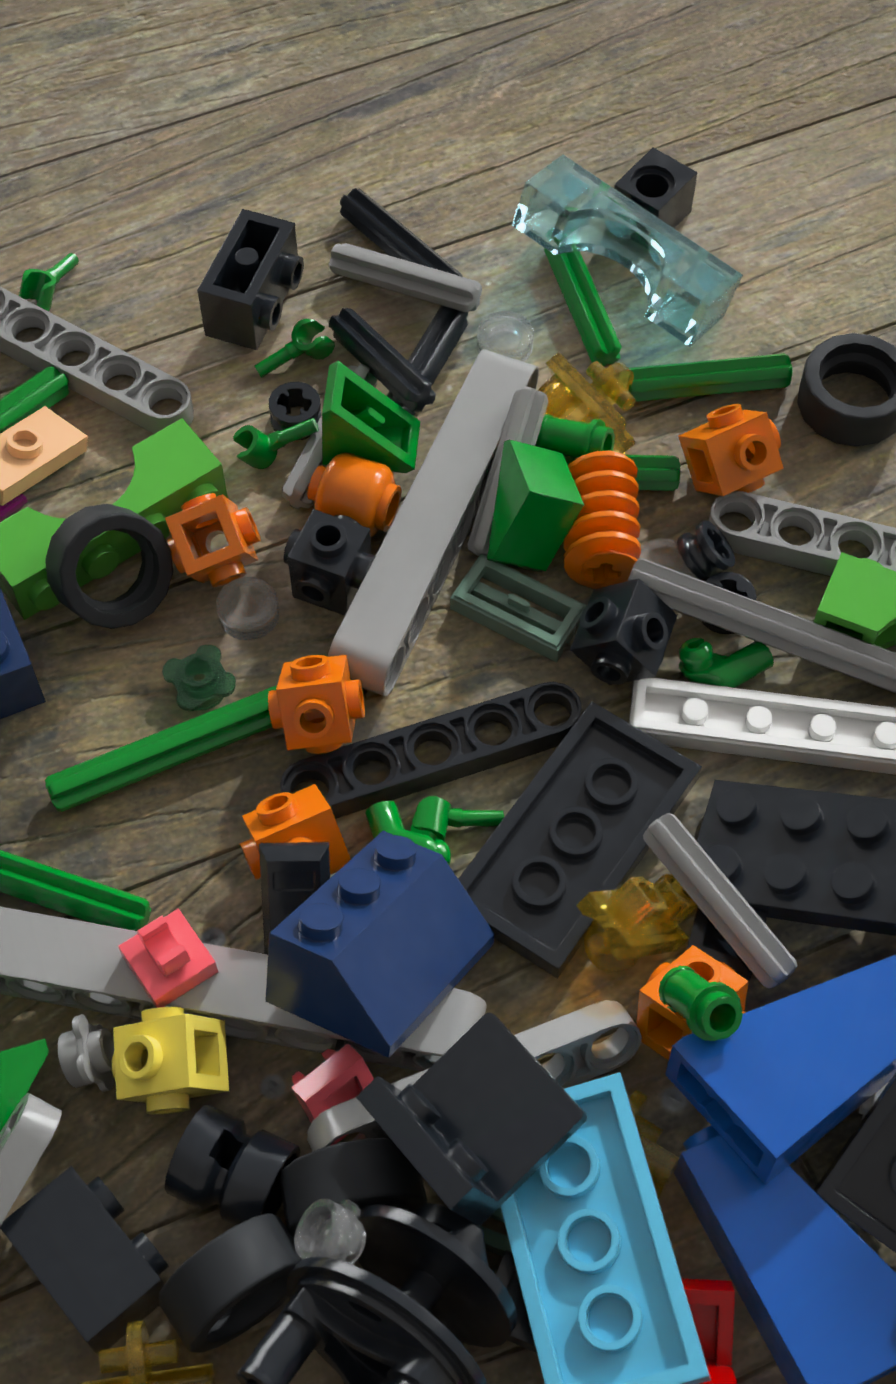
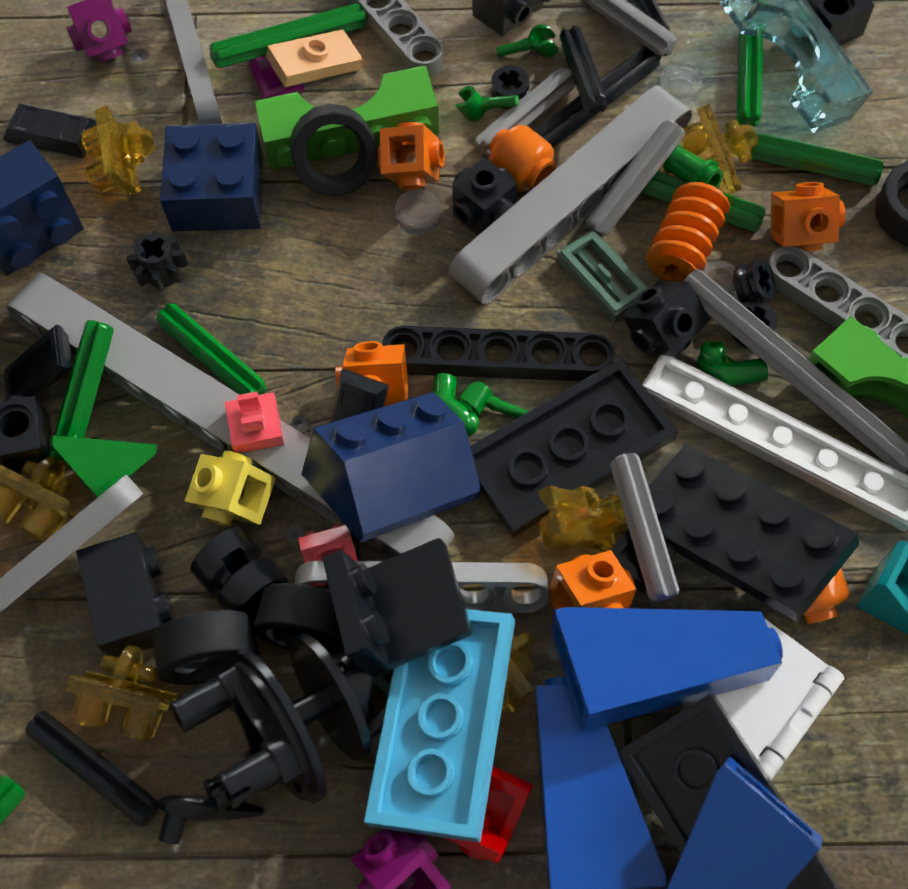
camera: 25 degrees right, 5 degrees up
(87, 1054) = (179, 464): light grey plate -> none
(159, 752) = (324, 287): green axle -> none
(204, 693) = (363, 258): clear green plate -> none
(316, 703) = (429, 290): orange brick -> none
(330, 1231) = (270, 640): clear plate -> none
(366, 422) = (548, 108): green slope -> none
(532, 506) = (640, 206): green slope -> none
(709, 1008) = (589, 594): green pin -> none

